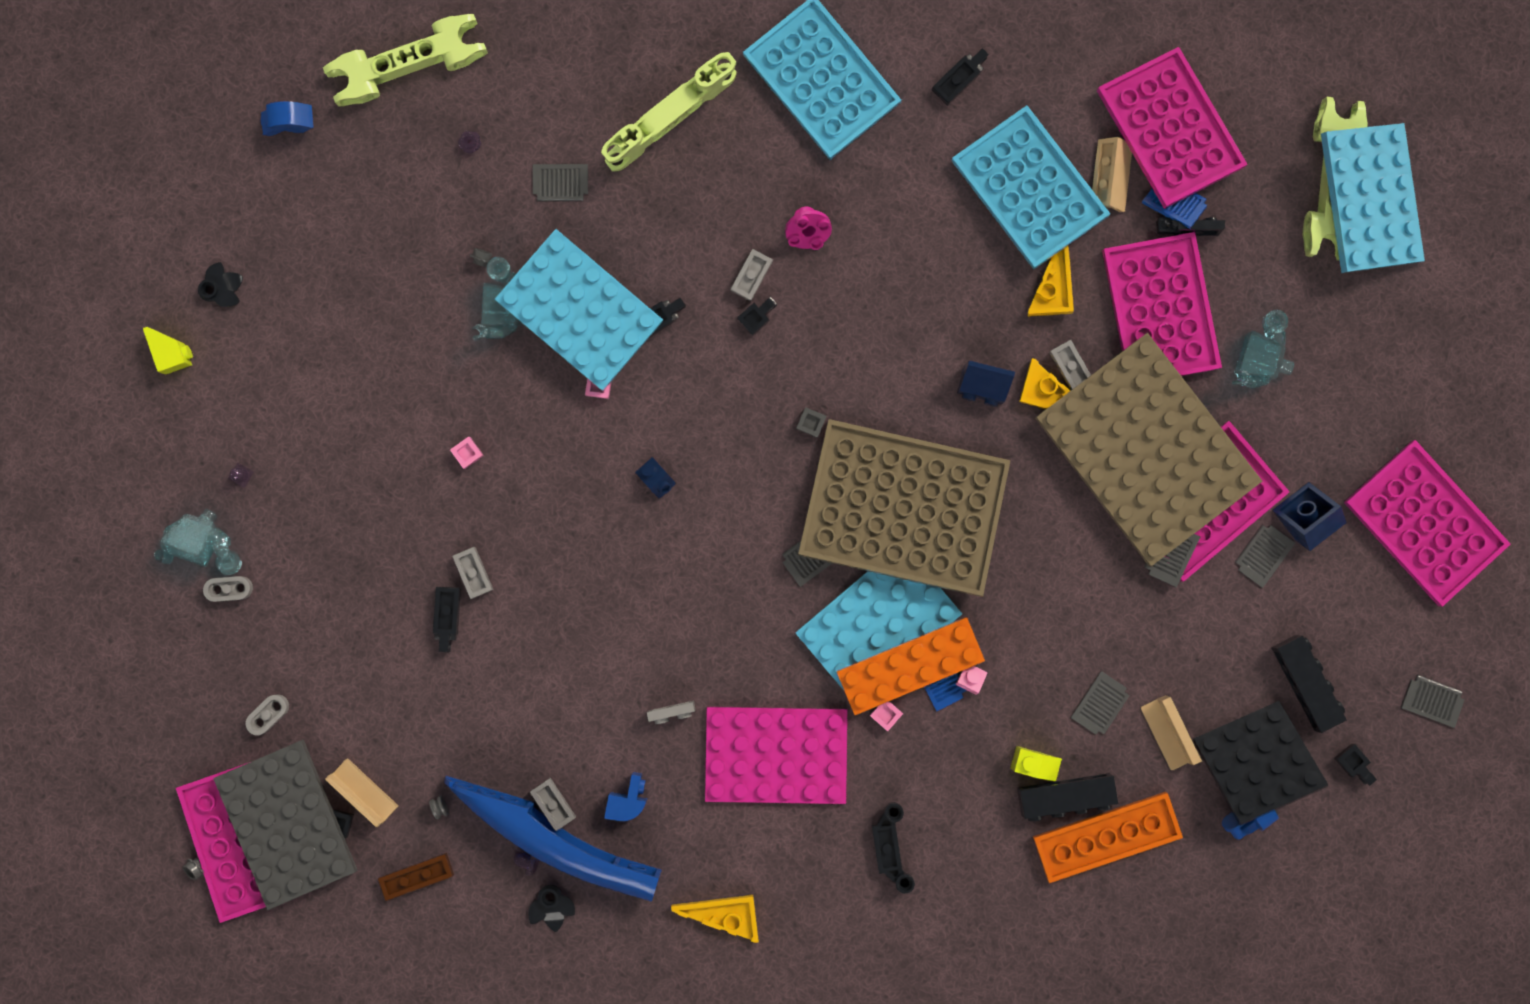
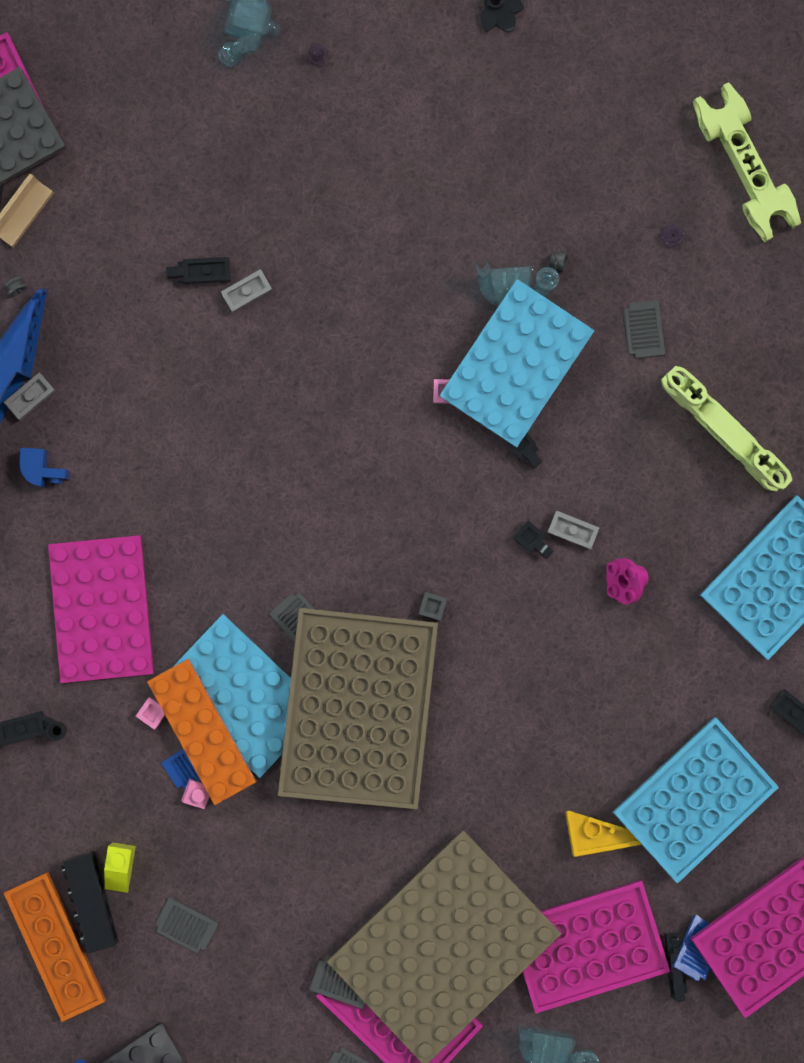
camera: 85 degrees right, 0 degrees up
(228, 588) = (204, 57): light grey plate -> none
(267, 714) = (88, 110): light grey plate -> none
(286, 116) = (674, 53): blue brick -> none
(466, 452) = (363, 270): bright pink plate -> none
(655, 478) = (360, 458): dark blue bracket -> none
(680, 710) = (128, 492): light grey plate -> none
(985, 383) = (491, 775): dark blue slope -> none
(1041, 387) = (494, 832): yellow wing -> none
(1070, 364) = (521, 859): light grey plate -> none
(1112, 172) = (720, 881): tan panel -> none
(1170, 733) = (164, 998): tan panel -> none

